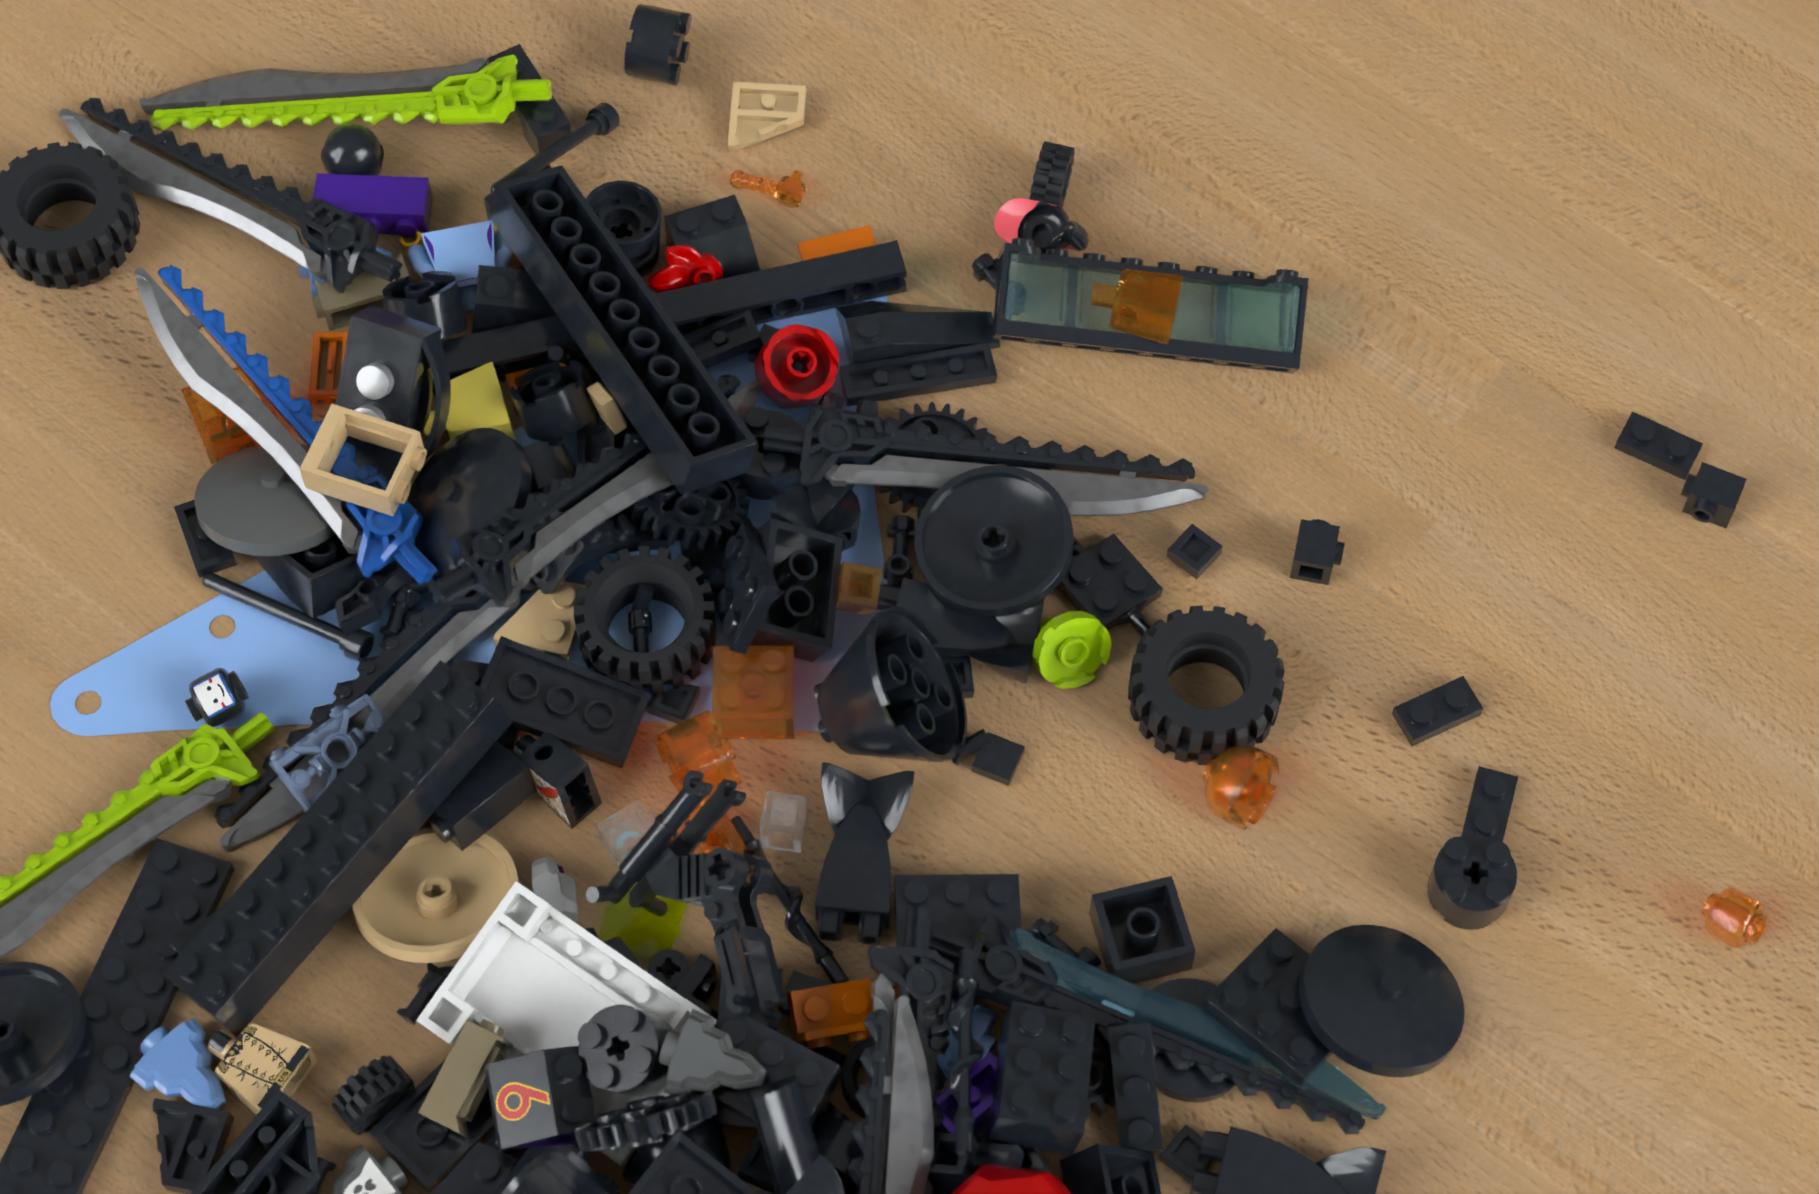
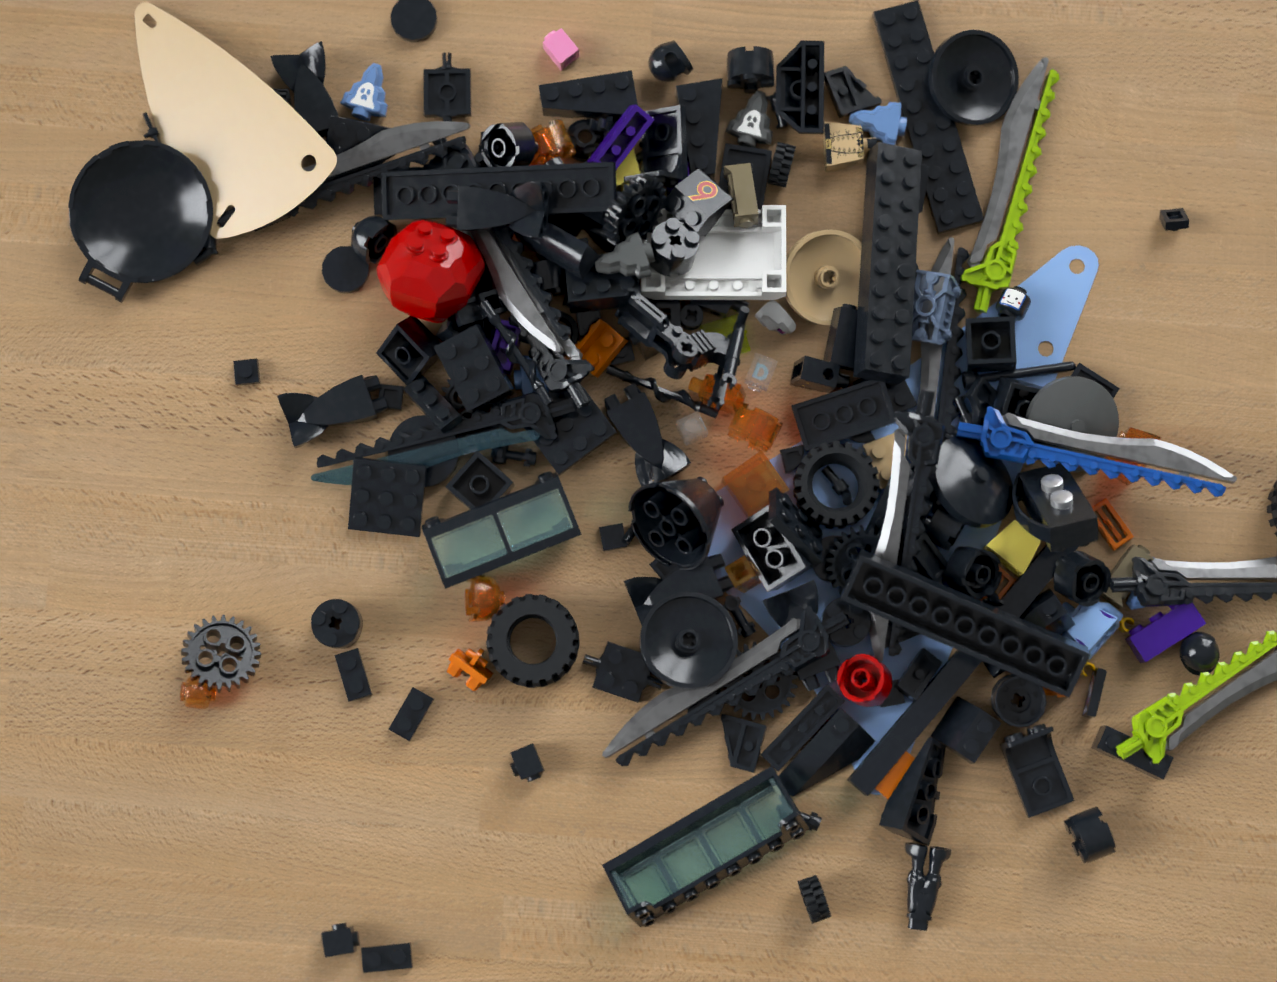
camera: 145 degrees right, 20 degrees up
(292, 661) = (990, 344): none -> black brick
(328, 443) = (1055, 445): tan window -> none
(427, 988) = (797, 231): black piece -> none
(600, 121) = (1086, 769): black piece -> none
(607, 407) = (942, 579): tan tile -> none
(664, 151) = (1036, 770): none -> black bracket
(685, 269) = (963, 698): red plate -> none
(764, 112) = (1003, 838): tan wing -> none
(787, 191) = (953, 797): clear orange piece -> none
(852, 204) = (912, 803): none -> black wedge
(908, 118) = (923, 889): none -> black piece
(1007, 402) = (743, 742): none -> black wing
(1039, 222) = (799, 859): black hair -> none
(1071, 648) = (613, 615): lime tile -> none
(1141, 303) = (707, 841): clear orange torso -> none
(1155, 838) = (501, 530): none -> windscreen
(1194, 551) = (590, 720): black plate -> none
(1312, 714) = (471, 663): none -> orange hips
(1381, 1001) = (343, 528): black dish -> none
(1695, 919) = (213, 673): none -> black gear

